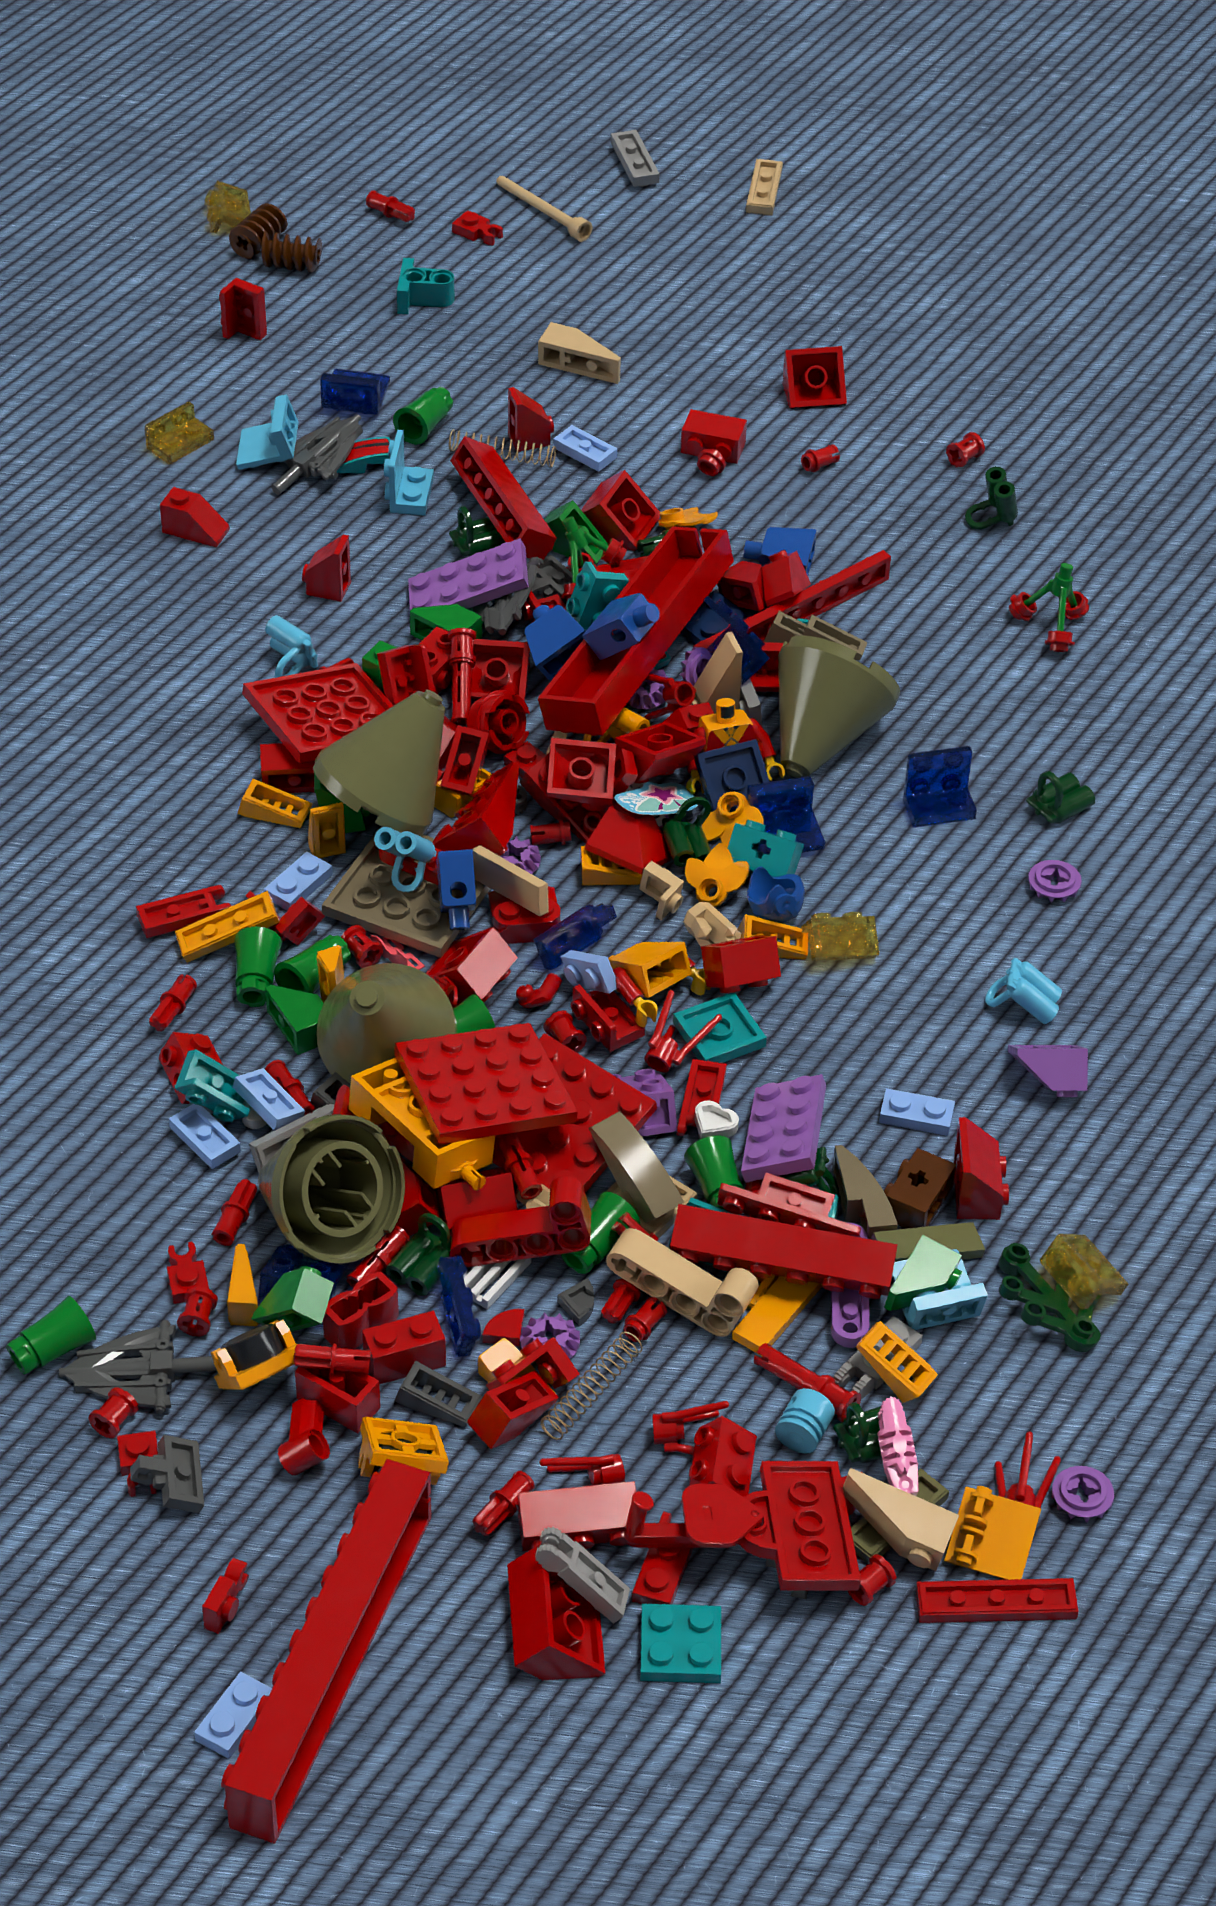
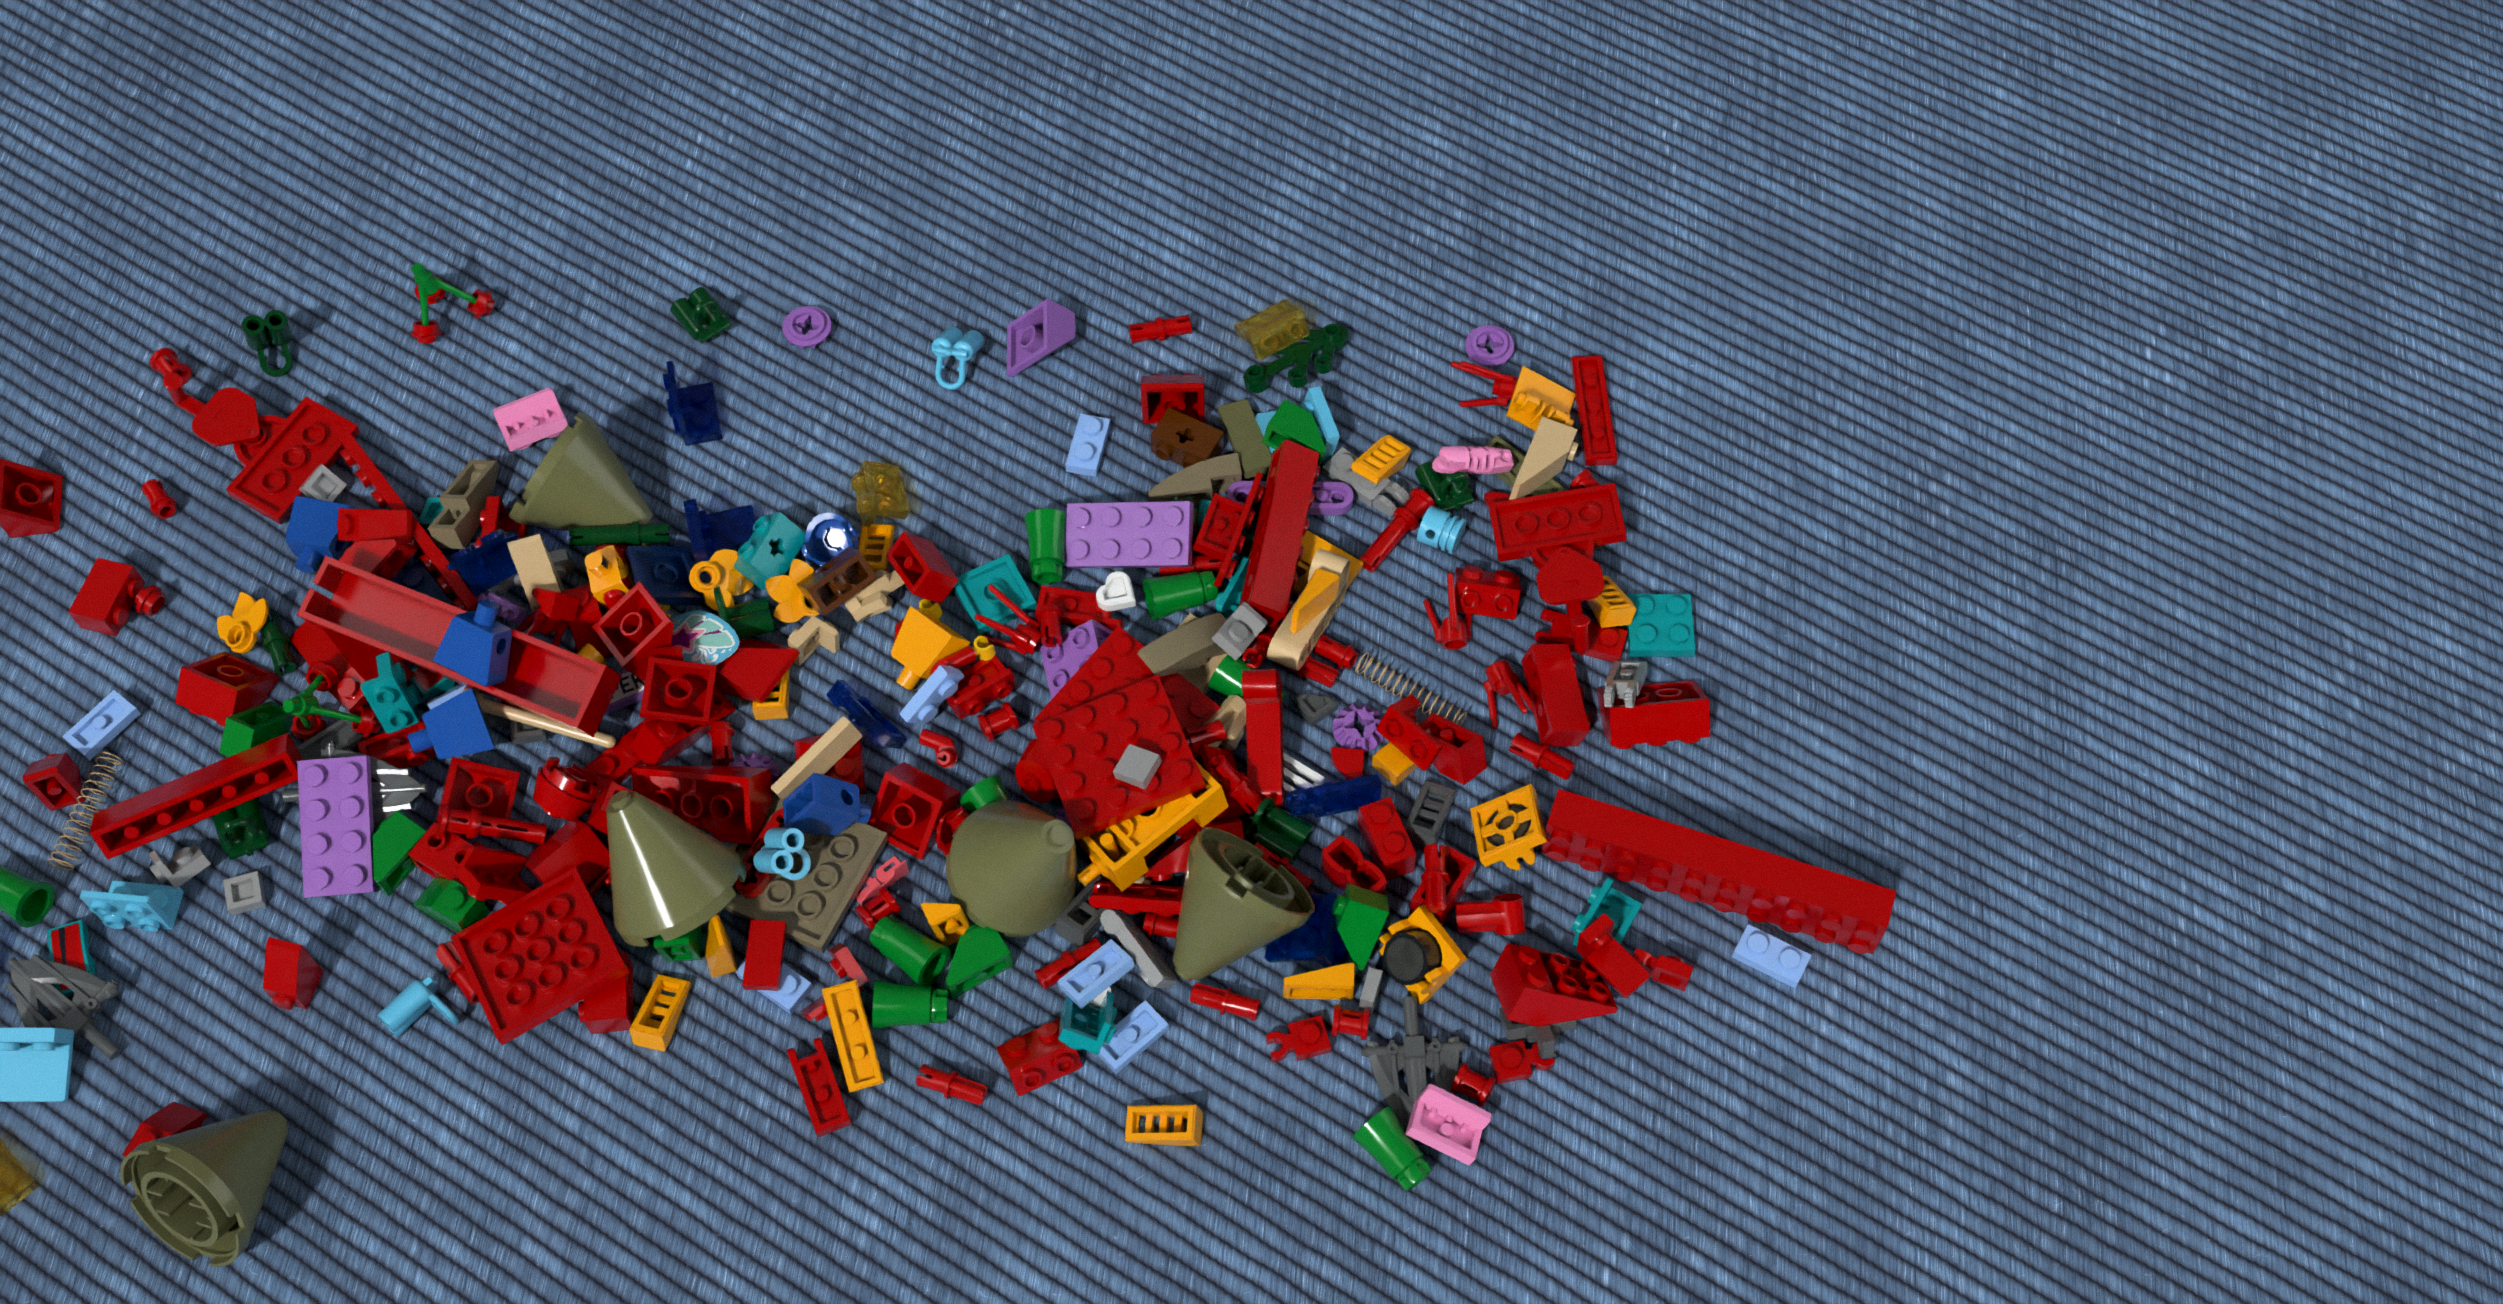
camera: 90 degrees left, 15 degrees up
(65, 1379) = (1447, 1123): none -> bright pink bracket
(109, 1168) = (1164, 1137): none -> light orange slope
(142, 534) = (207, 1184): none -> olive cone
(209, 1478) = (1548, 987): none -> red slope
(226, 1325) = (1370, 990): none -> light grey tile
(238, 1532) = (1610, 958): none -> red bracket
(289, 1544) = (1614, 904): none -> teal bracket
(315, 862) = (764, 955): none -> red tile
(418, 547) = (244, 893): none -> light grey tile
(438, 499) = (181, 868): none -> light grey bracket
(457, 1079) = (1137, 766): none -> light grey tile
(458, 1189) = (1234, 783): none -> red pin
(649, 1205) = (1239, 630): none -> light grey bracket
(671, 1063) = (1049, 618): none -> red pin
(683, 1264) = (1315, 598): none -> light orange slope
(685, 689) = (557, 604): none -> red slope
(687, 1593) = (1612, 606): none -> light orange slope
(716, 889) = (837, 581): none -> reddish brown brick
(773, 1065) = (1046, 544): none -> green plant
(774, 746) = (620, 534): none -> dark green pin
(835, 553) = (322, 485): none -> light grey tile
(878, 515) = (272, 463): none -> red plate
(920, 682) = (530, 419): none -> bright pink bracket
(1079, 1174) = (1160, 329): none -> red pin

